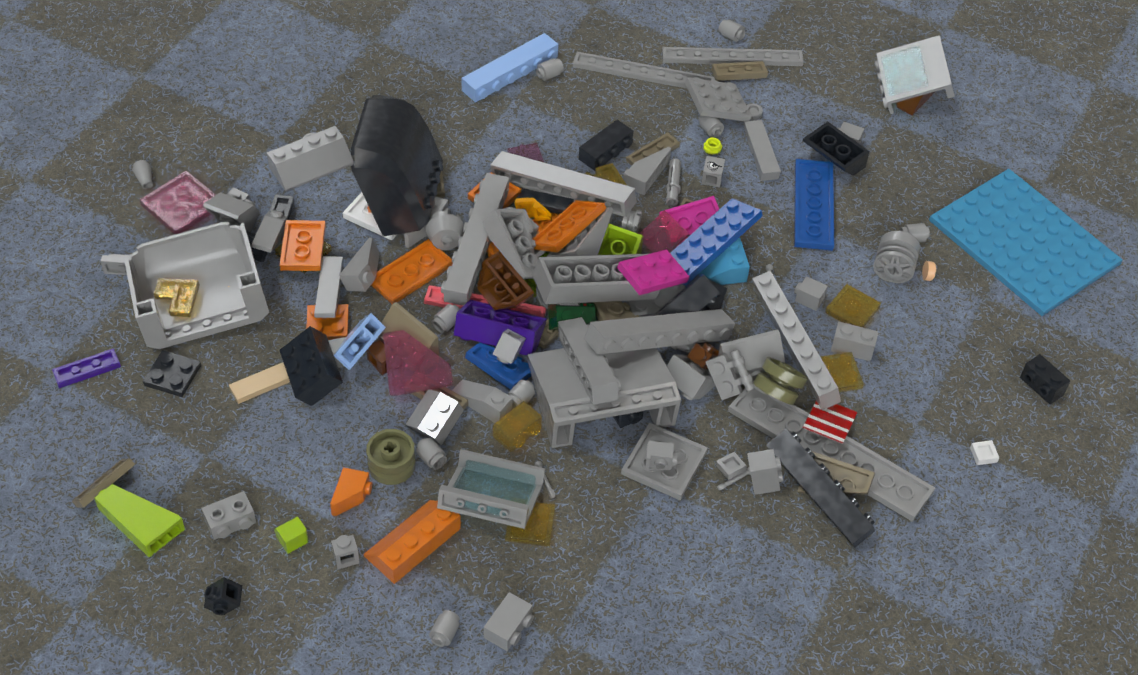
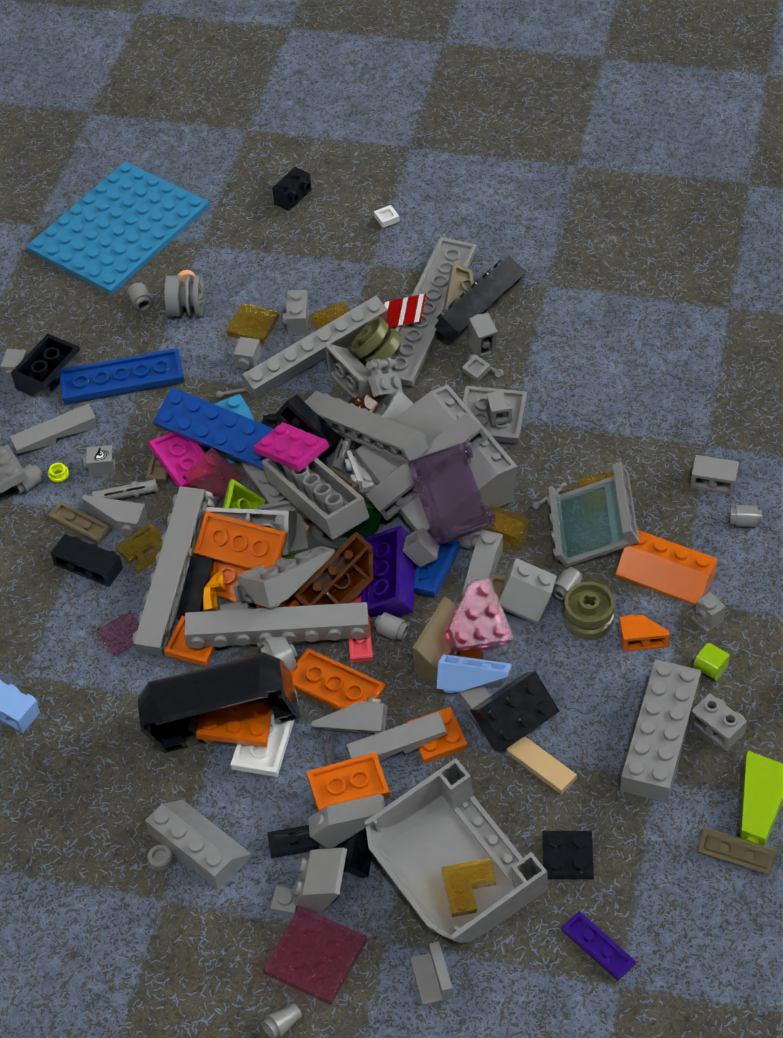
camera: 100 degrees left, 0 degrees up
(243, 467) = (660, 731): none -> light grey brick
(544, 345) = (450, 493): none -> clear purple windscreen

